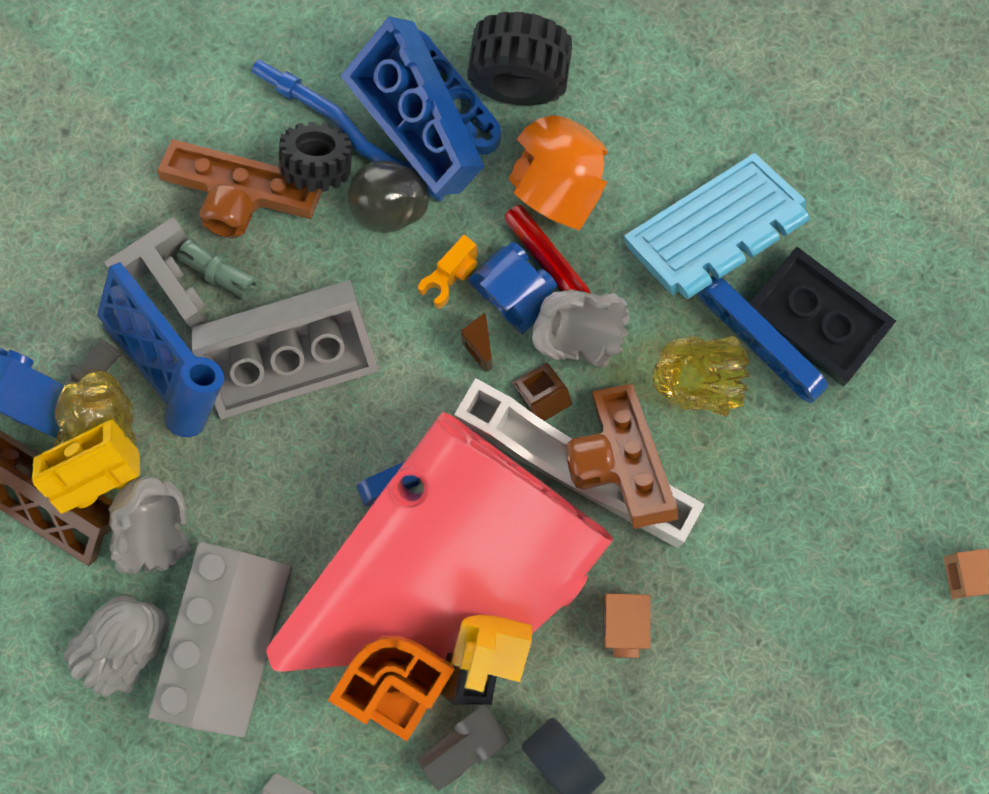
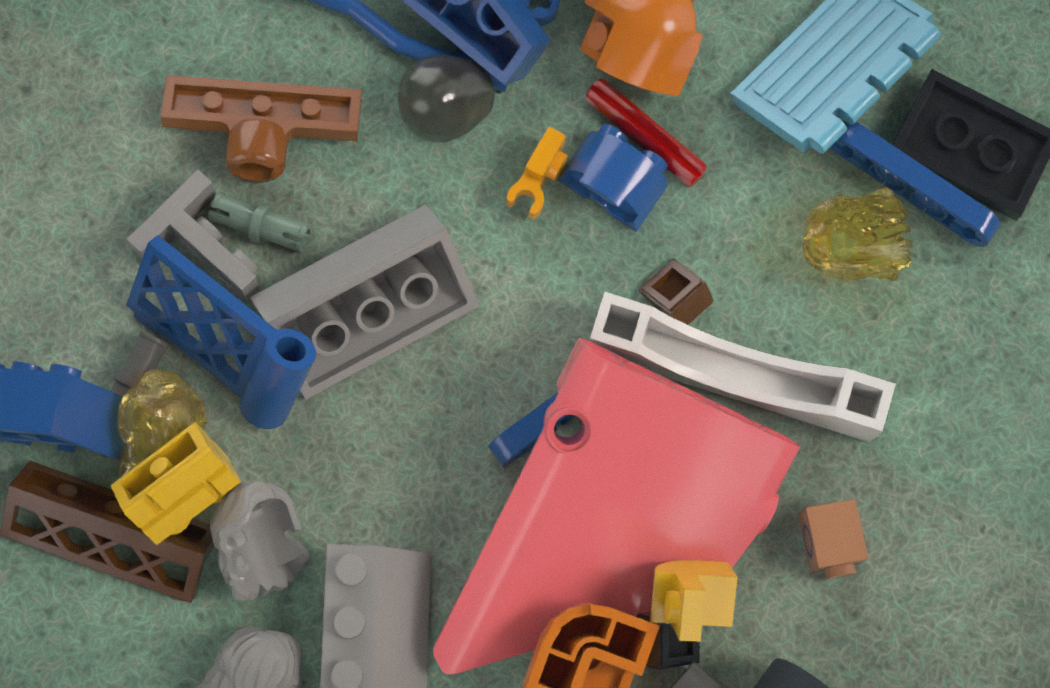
camera: 25 degrees left, 0 degrees up
(315, 156) = (348, 84): black tyre -> none
(476, 341) = (592, 251): reddish brown slope -> none
(581, 326) = (707, 208): light grey hair -> none
(624, 457) = (794, 348): dark orange plate -> none

